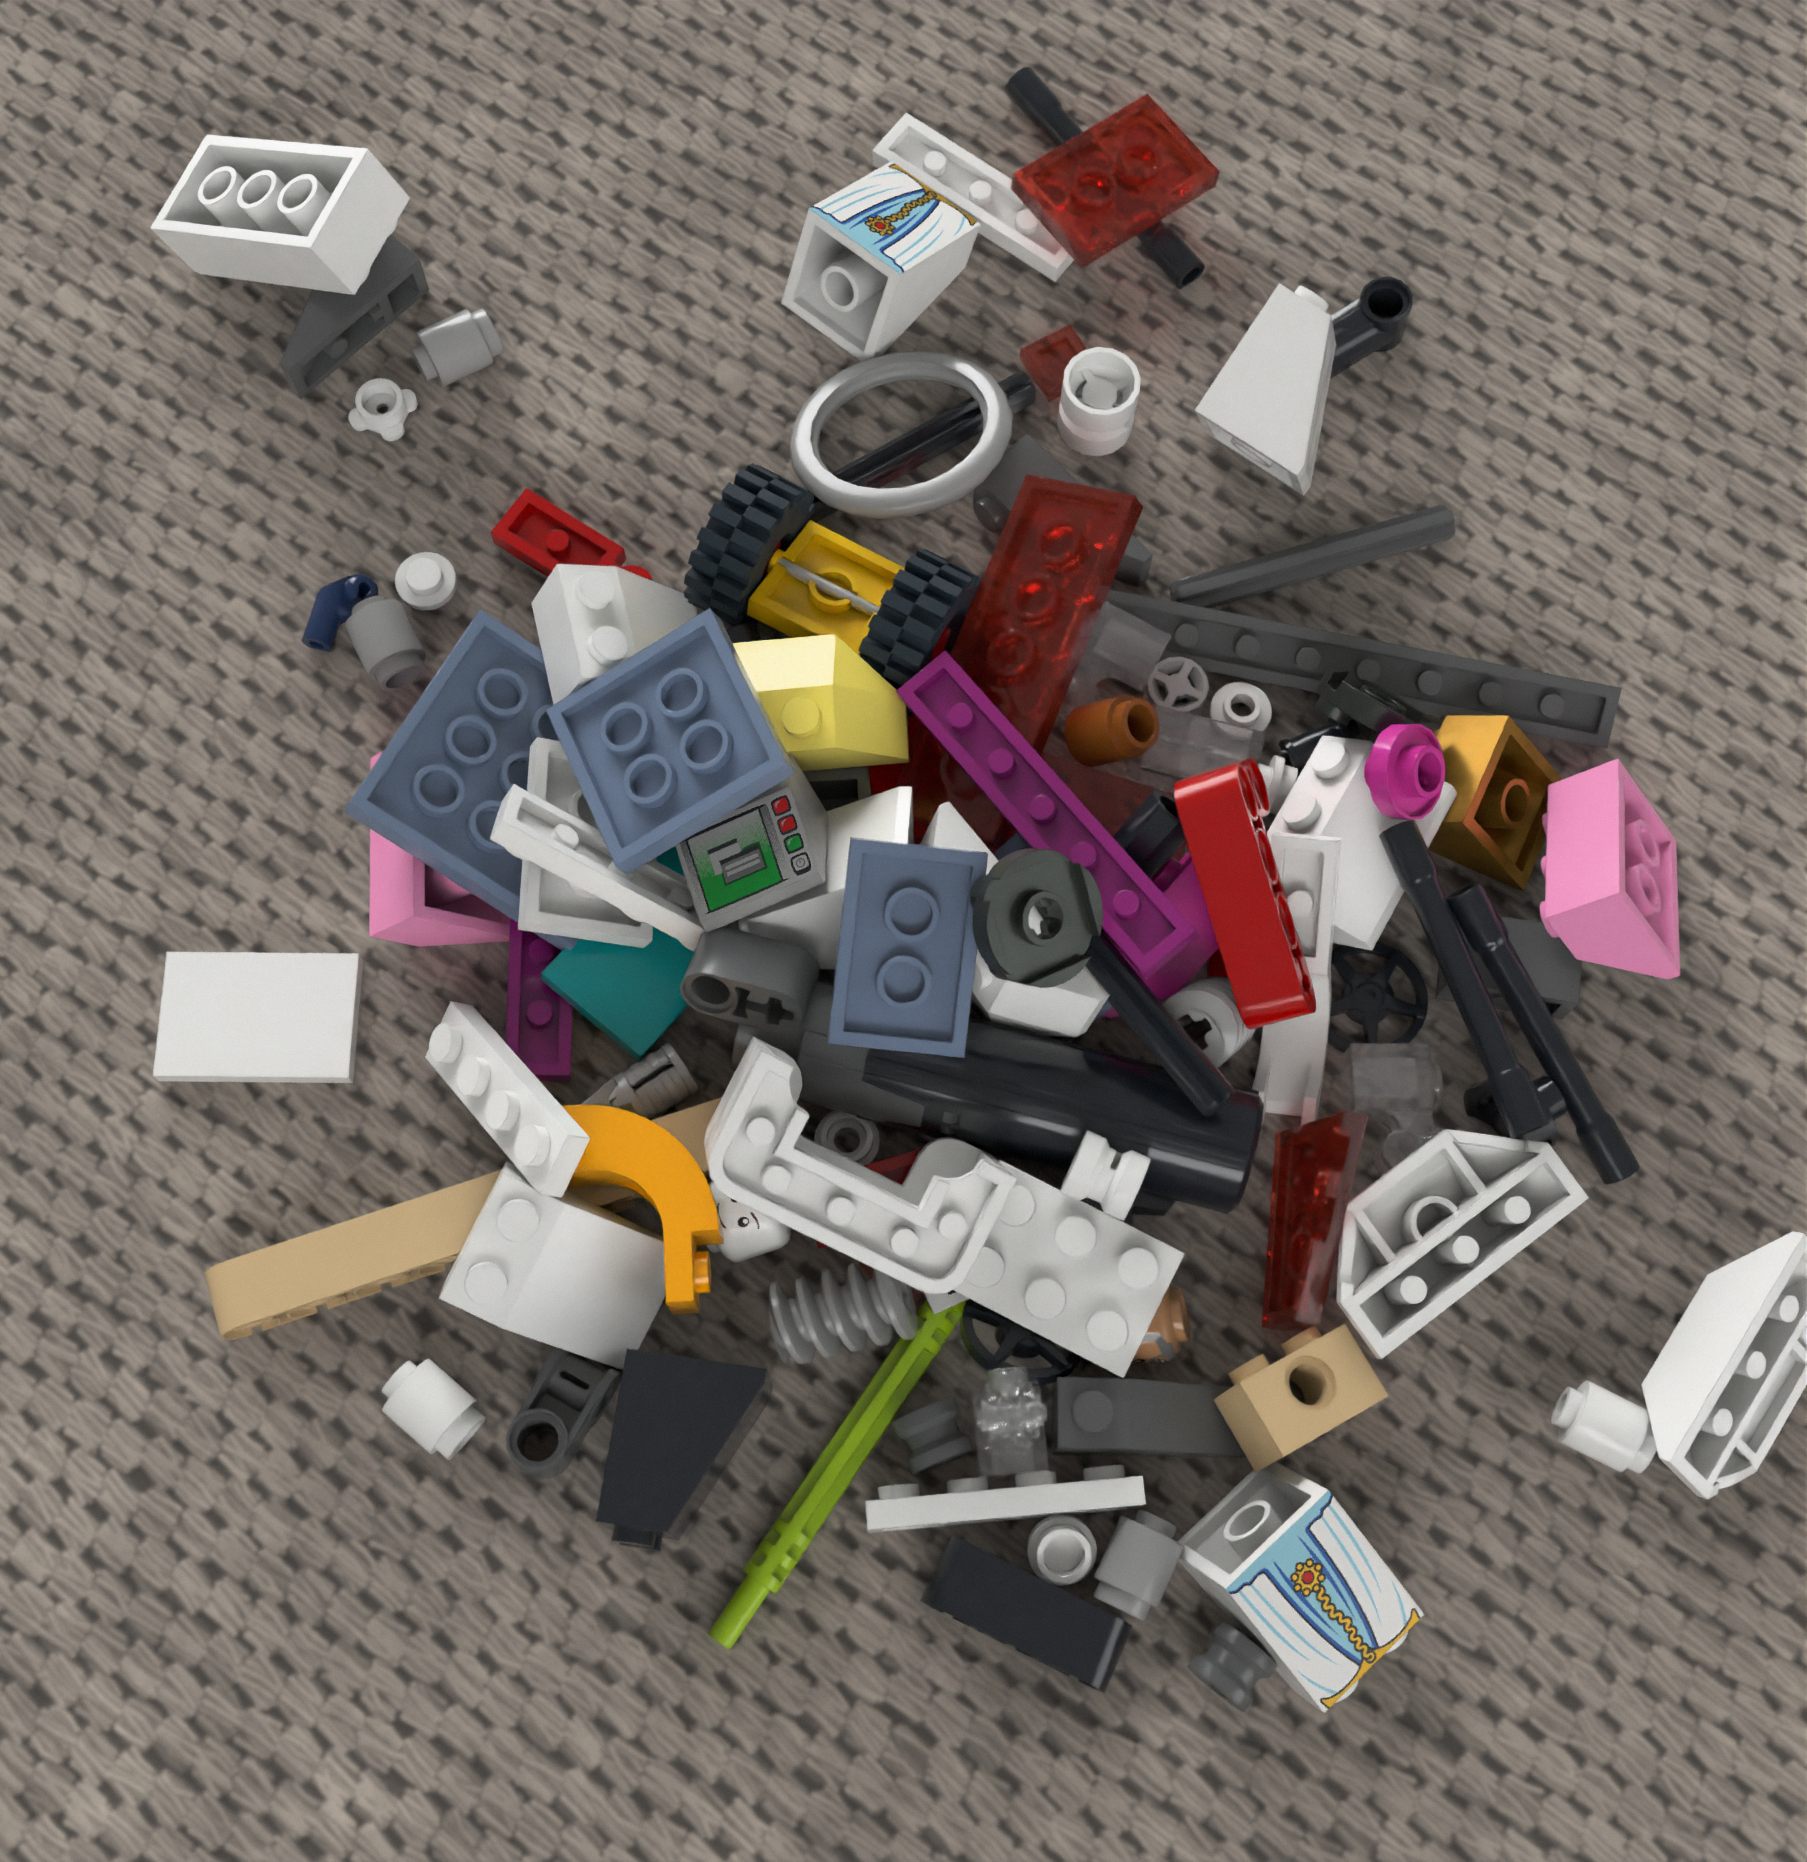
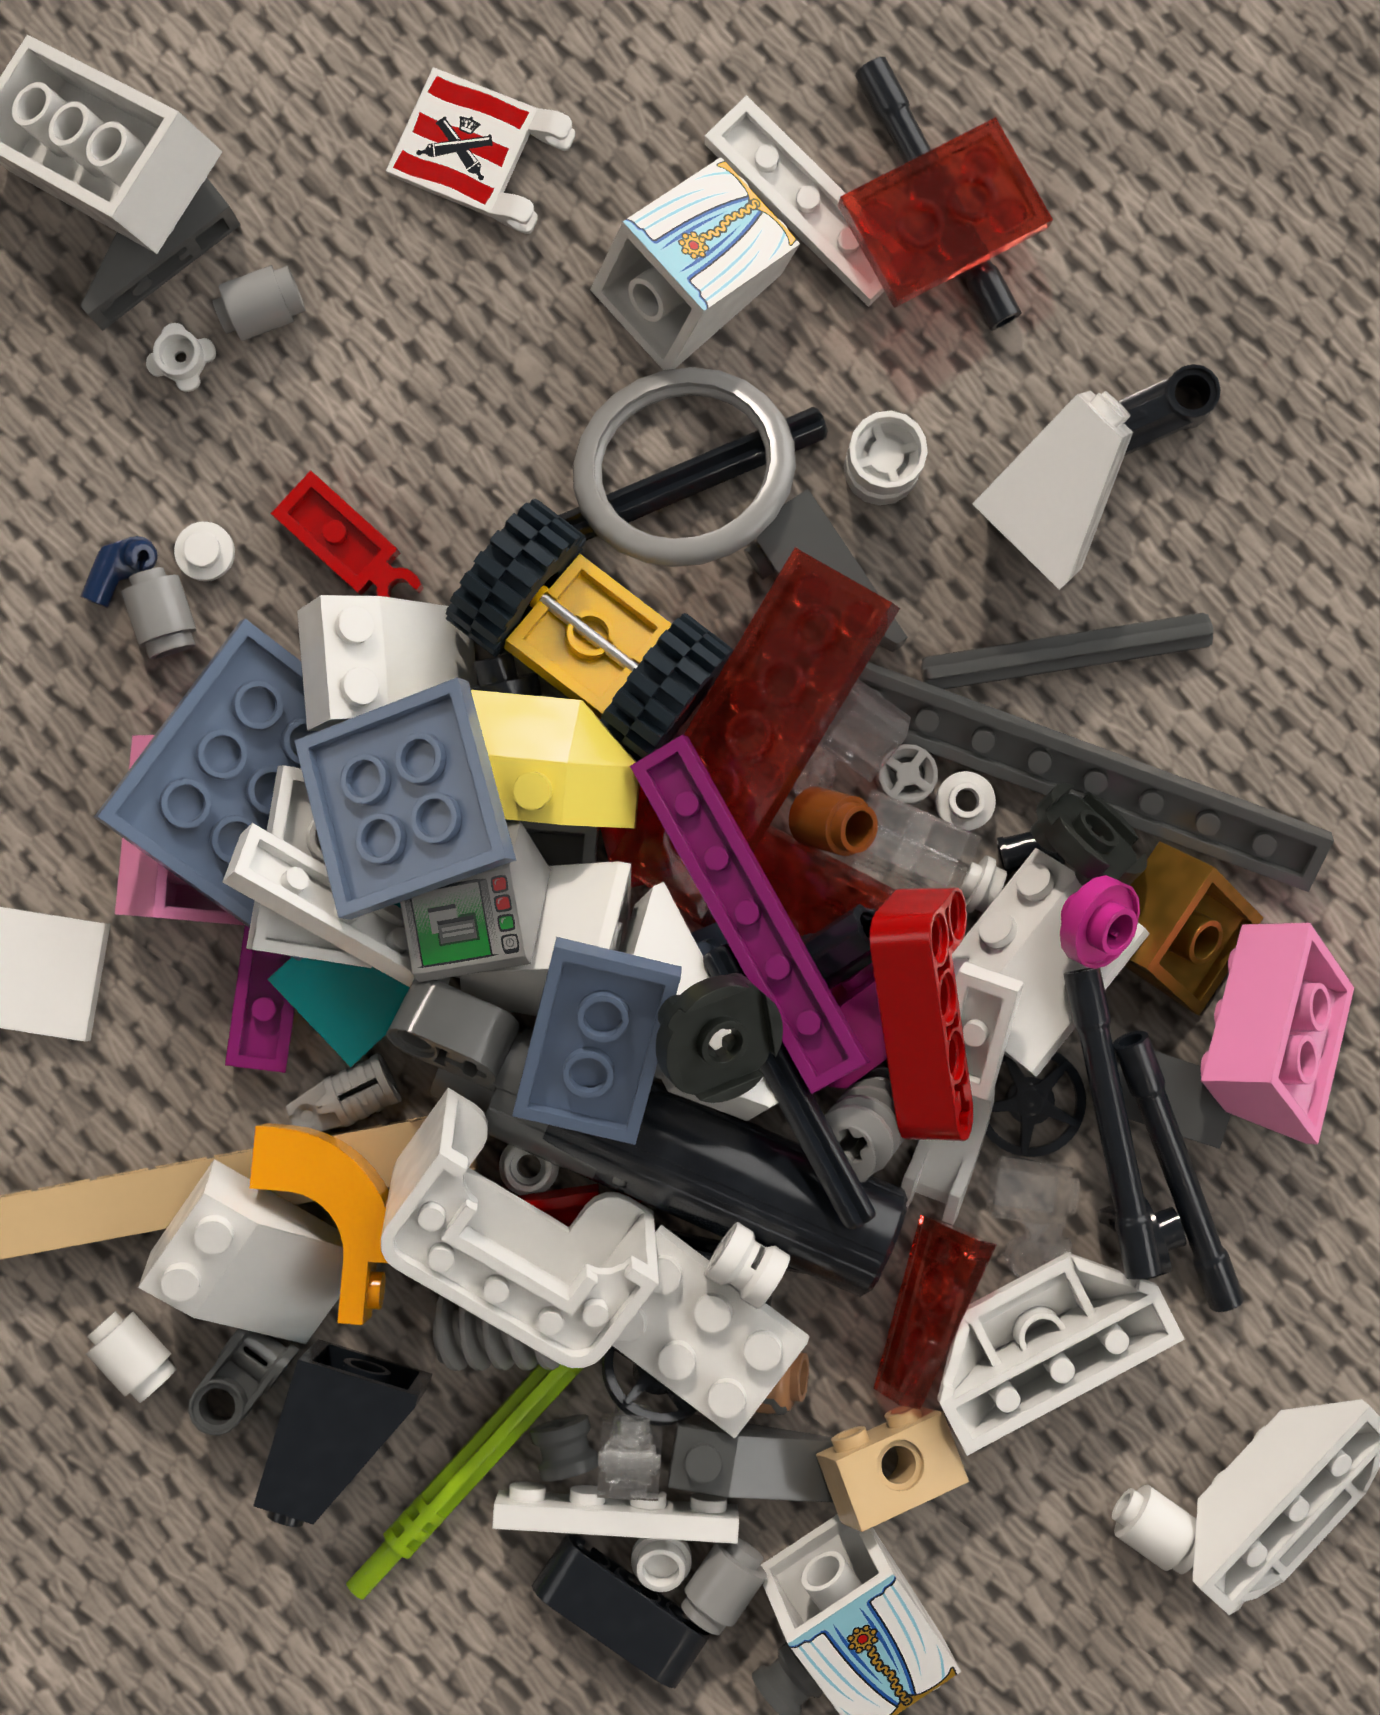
camera: 10 degrees right, 15 degrees up
(507, 1099) = (220, 1104): white plate -> none
(646, 191) = (468, 142): none -> flag
(1049, 358) = (855, 396): clear red tile -> none

